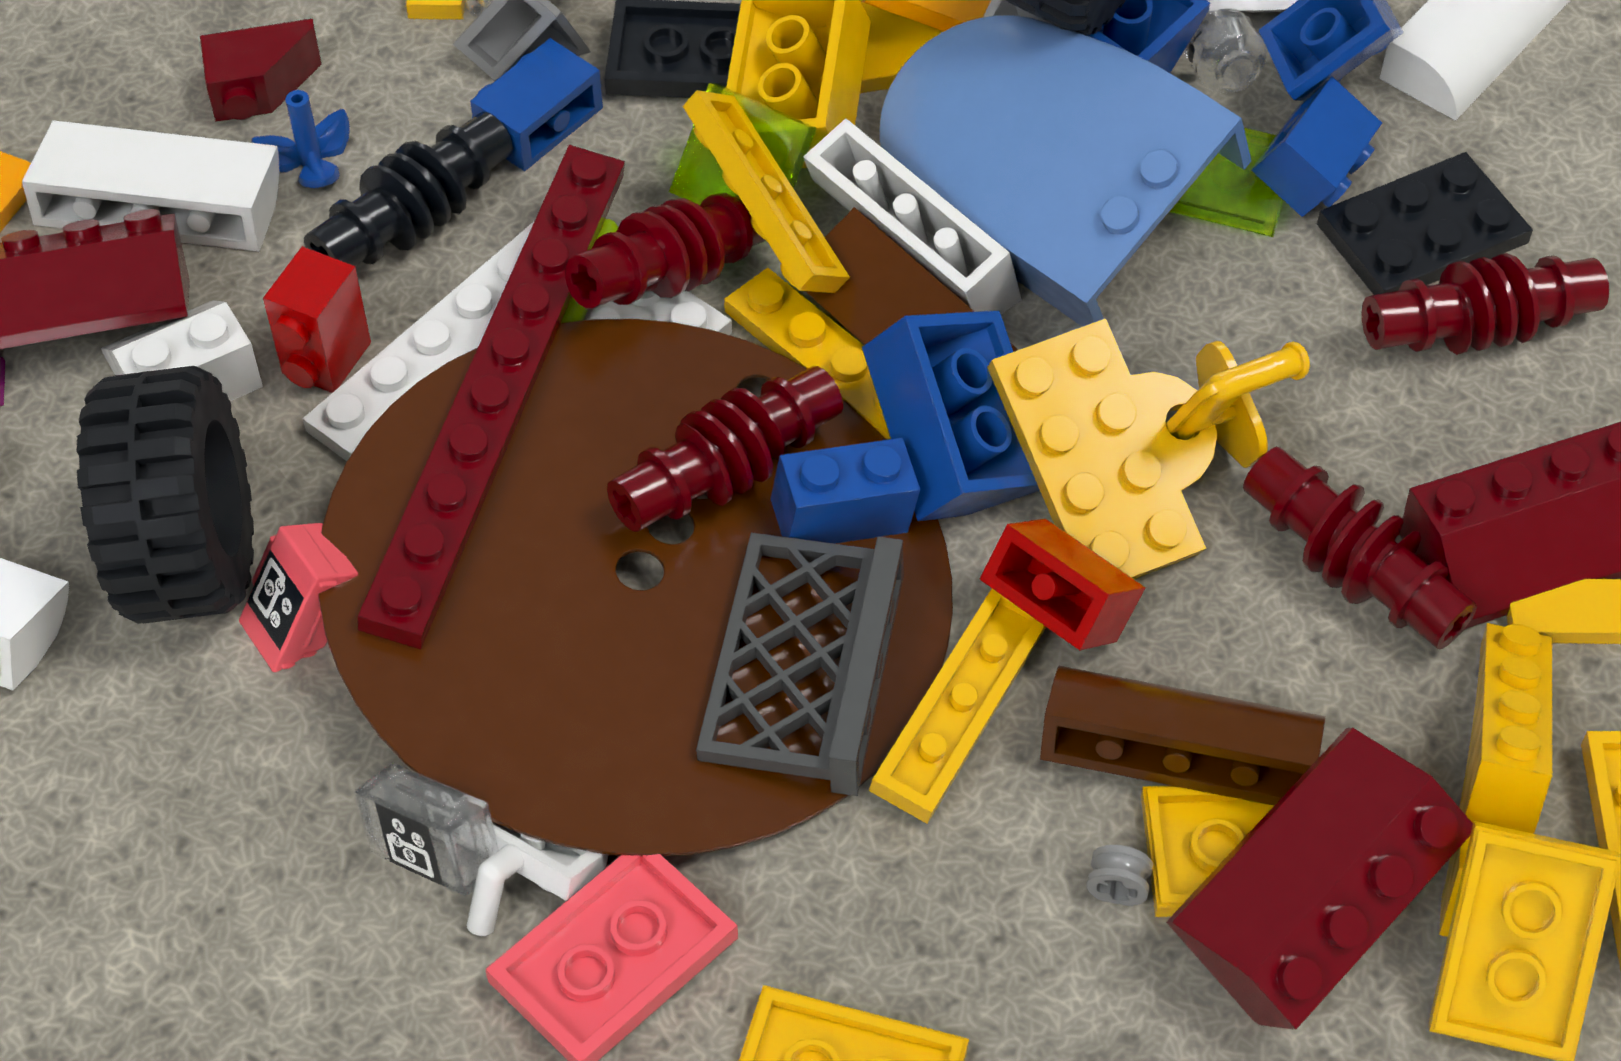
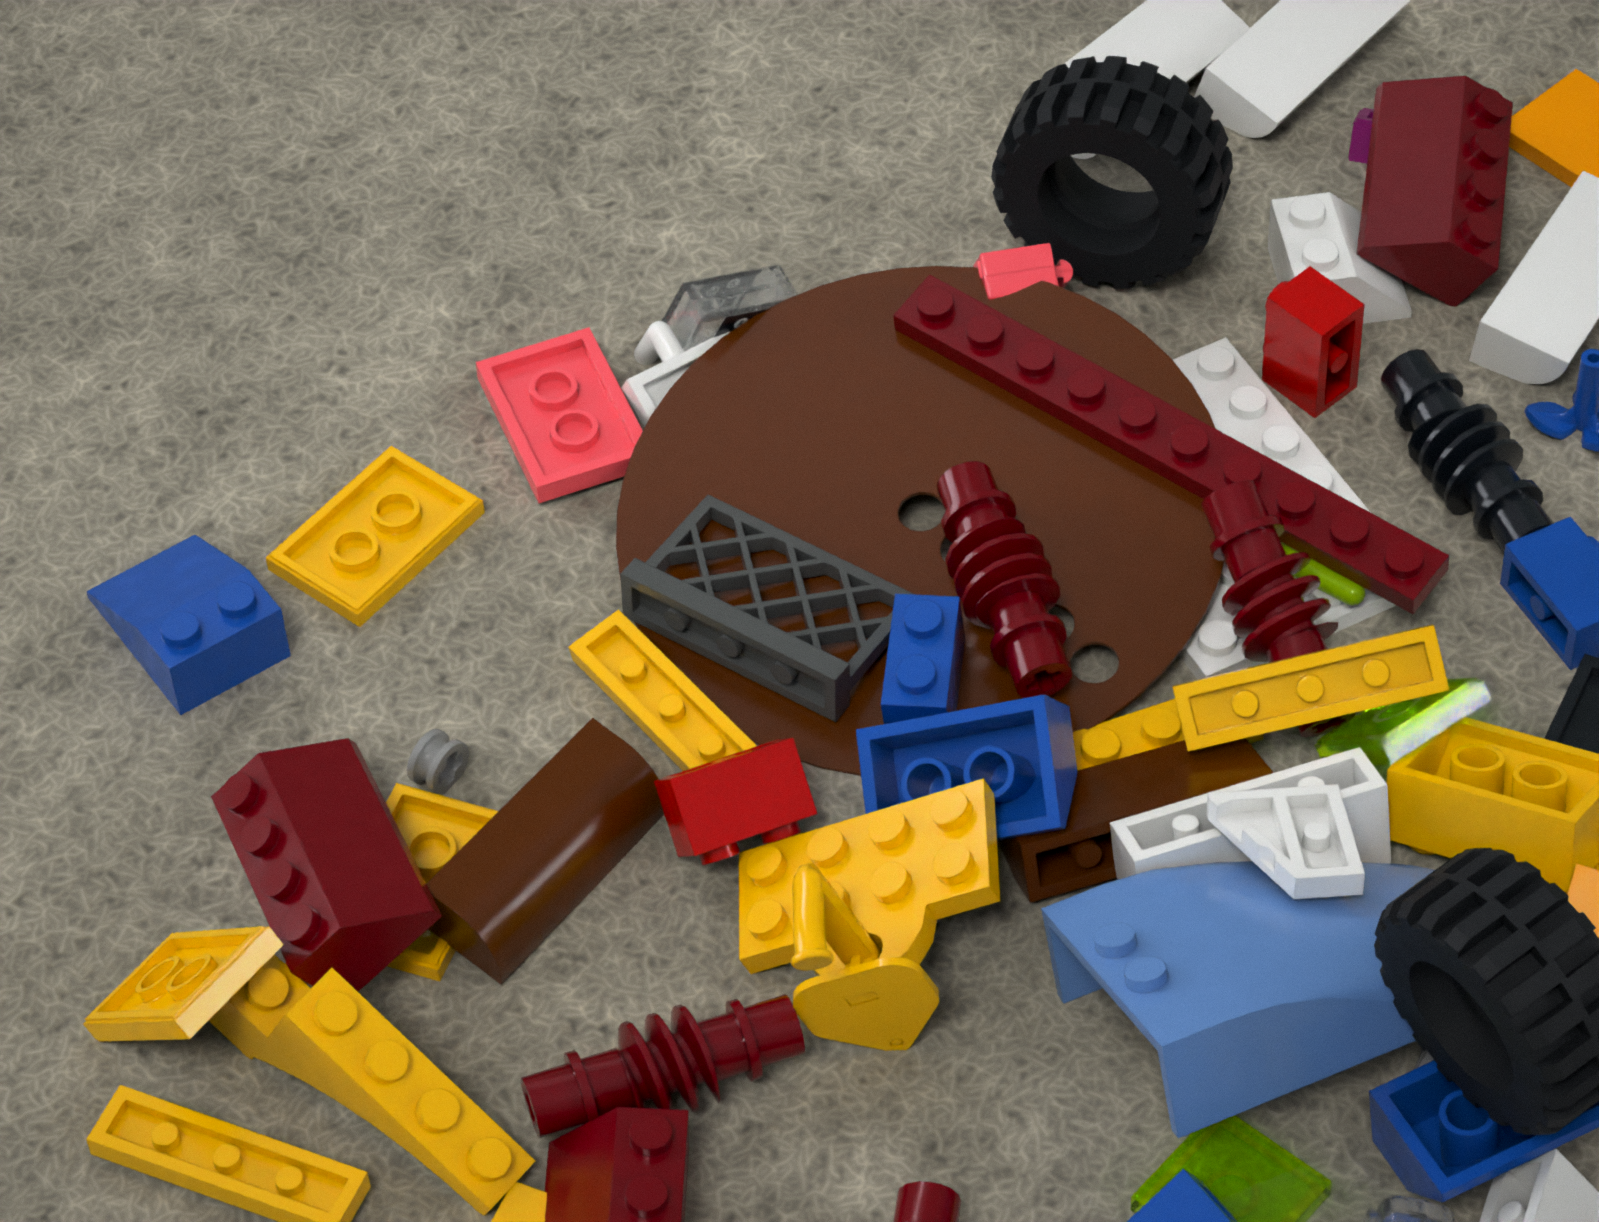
camera: 115 degrees right, 5 degrees down
(948, 138) = (1294, 837): none -> white wing

